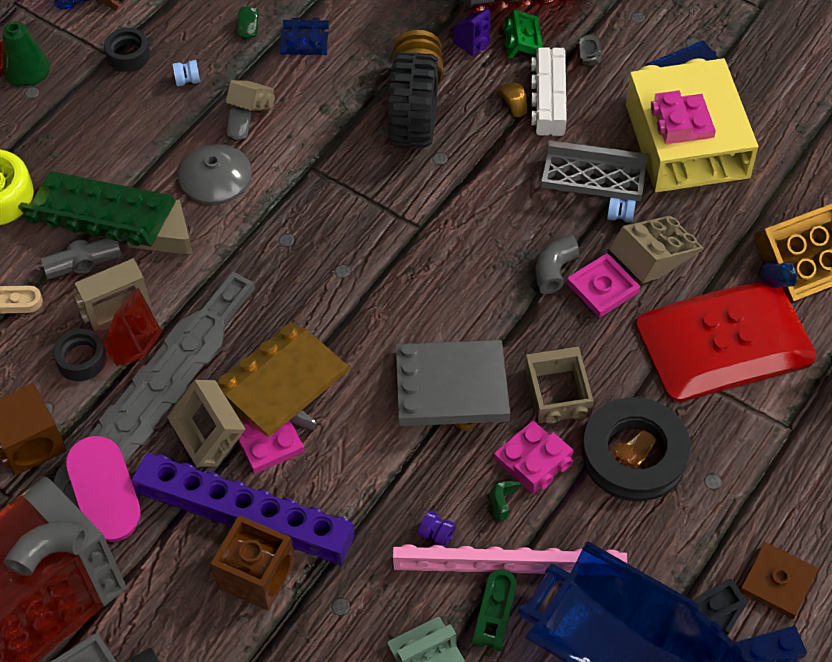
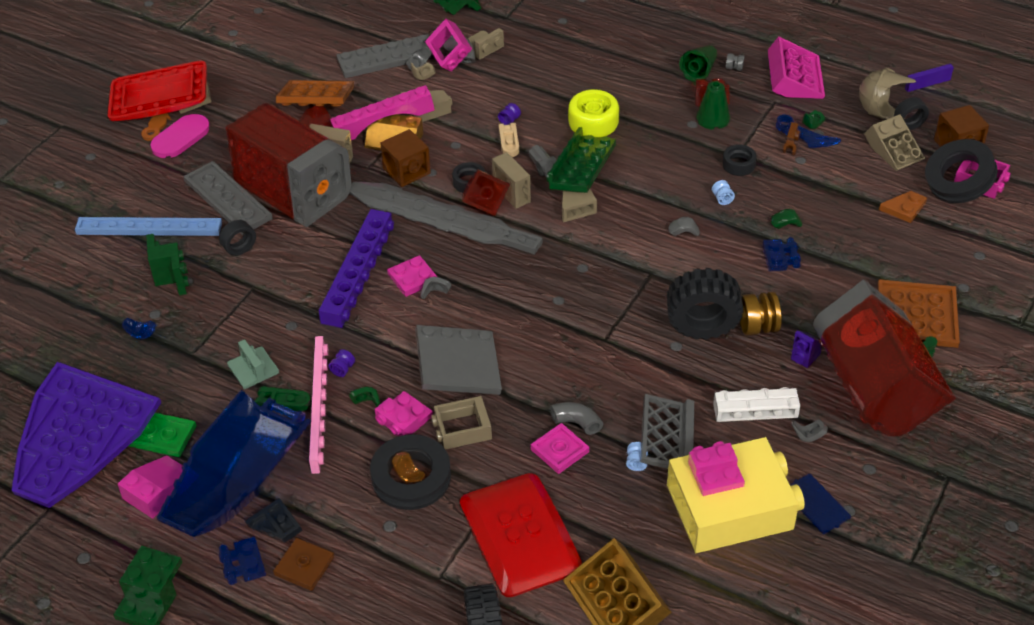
camera: 85 degrees right, 10 degrees down
(45, 540) = (290, 144): dark grey cylinder -> none
(103, 487) = (378, 196): dark pink tile -> none
(214, 174) = (635, 223): dark grey dish -> none
(225, 434) = (413, 235): dark tan window -> none
(250, 95) = (700, 222): dark tan brick -> none
(253, 562) = (309, 268): reddish brown brick -> none
(281, 378) = (451, 266): pearl gold slope -> none
(515, 98) = (745, 380): pearl gold hair -> none
(521, 33) = (819, 384): green bracket -> none
(654, 247) = (603, 481): dark tan slope -> none
(779, 274) = (578, 558): clear blue hair -> none

